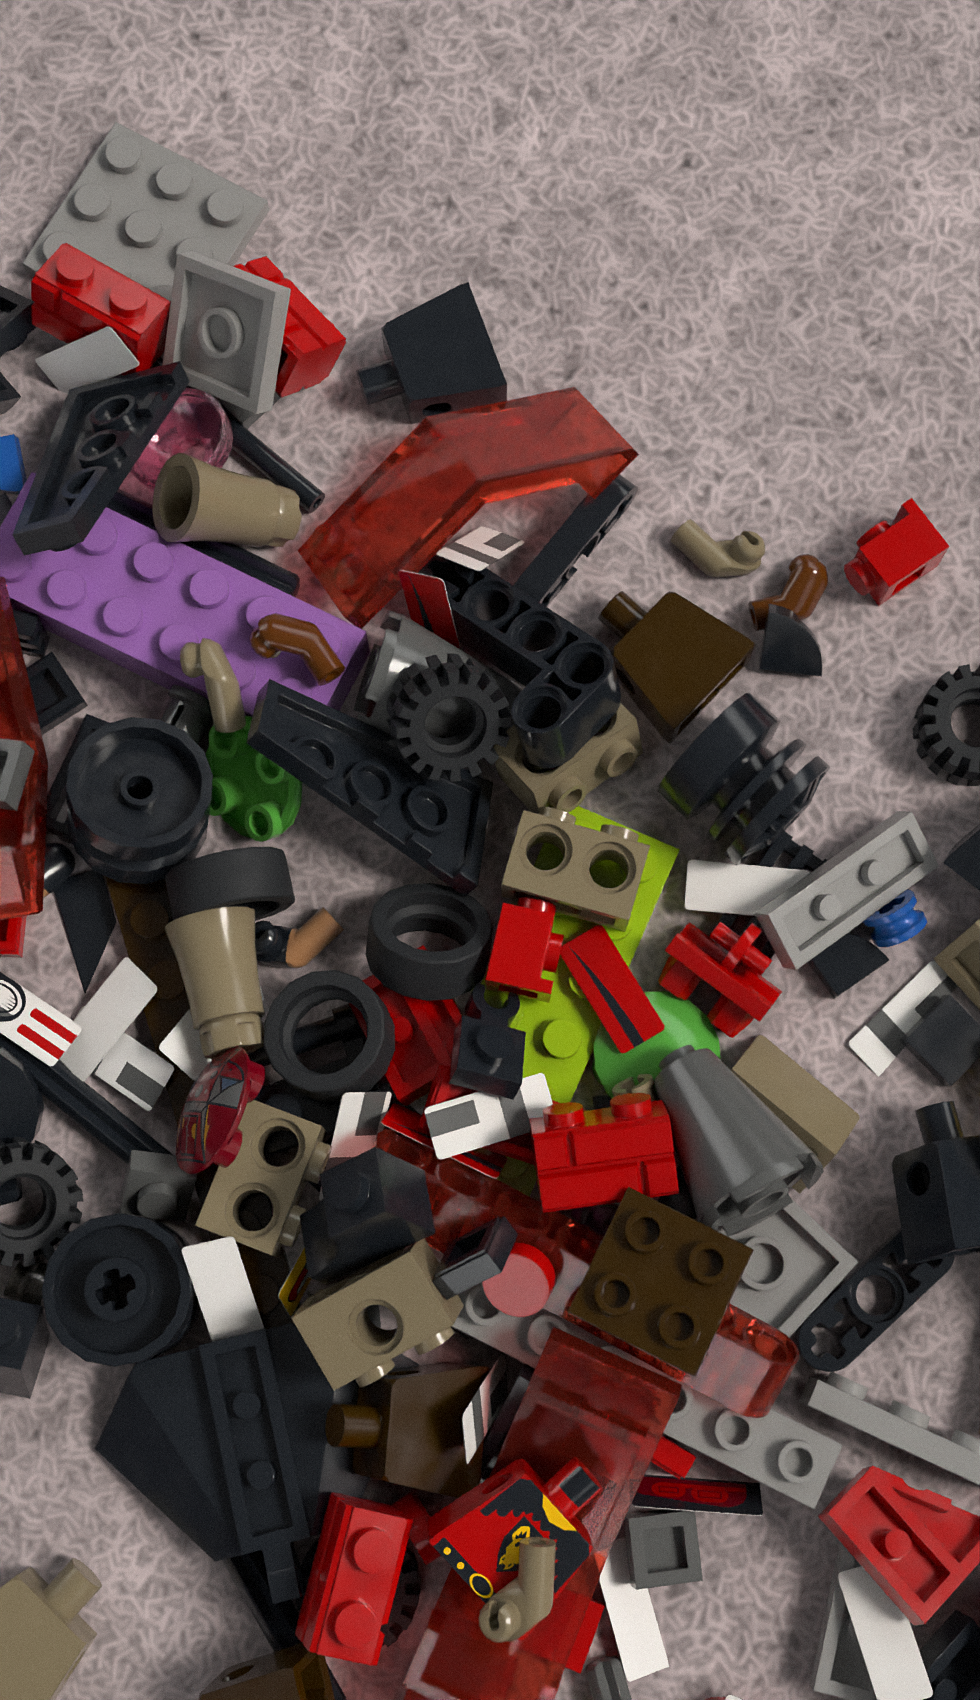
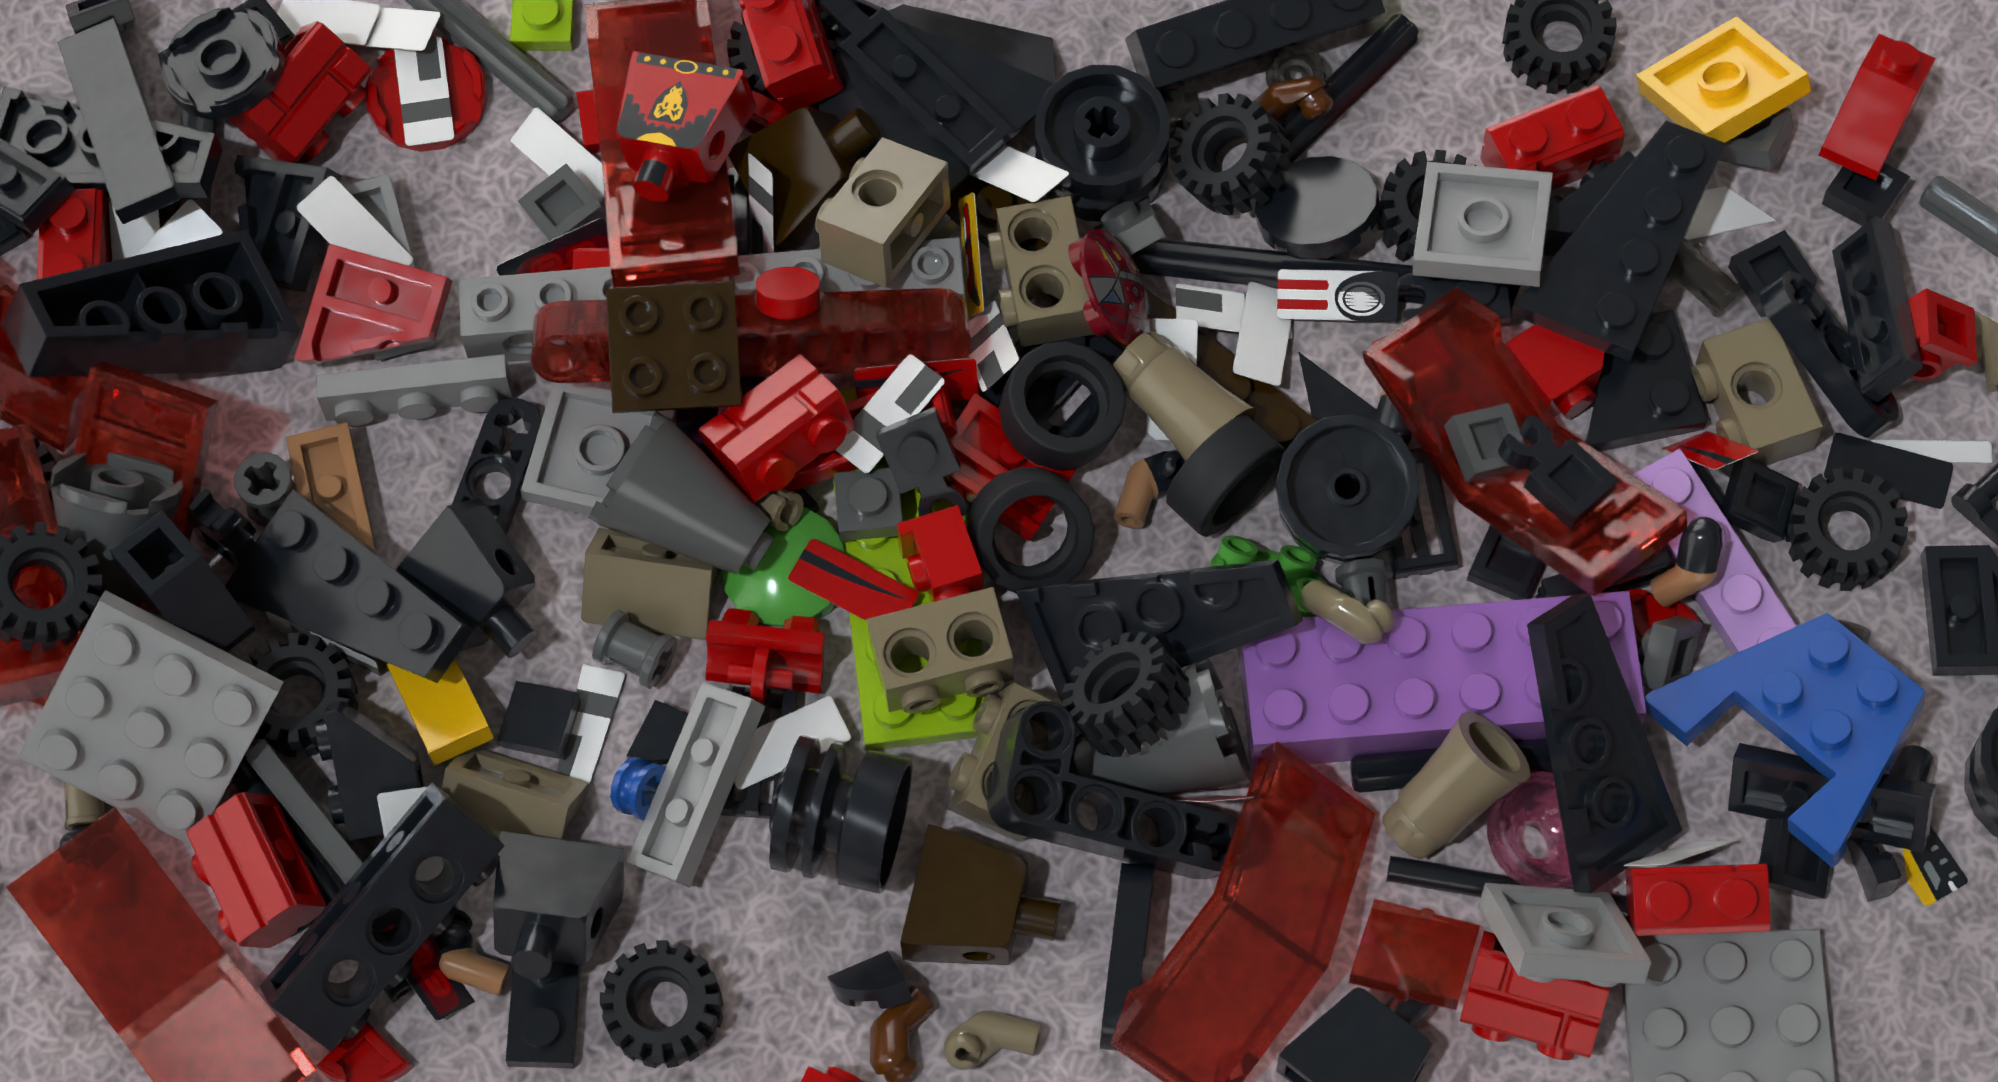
camera: 150 degrees right, 10 degrees down
(297, 637) = (1300, 686): reddish brown arm -> none
(345, 414) = (1414, 954): none -> clear red piece
(366, 1213) = (934, 266): black arch -> none
(475, 1257) = (831, 280): black tile -> none
(480, 548) = (1198, 878): white sticker -> none
(526, 1598) = (647, 70): dark tan arm -> none
(557, 1052) = (867, 504): none -> dark grey plate
(832, 1050) = (634, 649): none -> dark grey bush

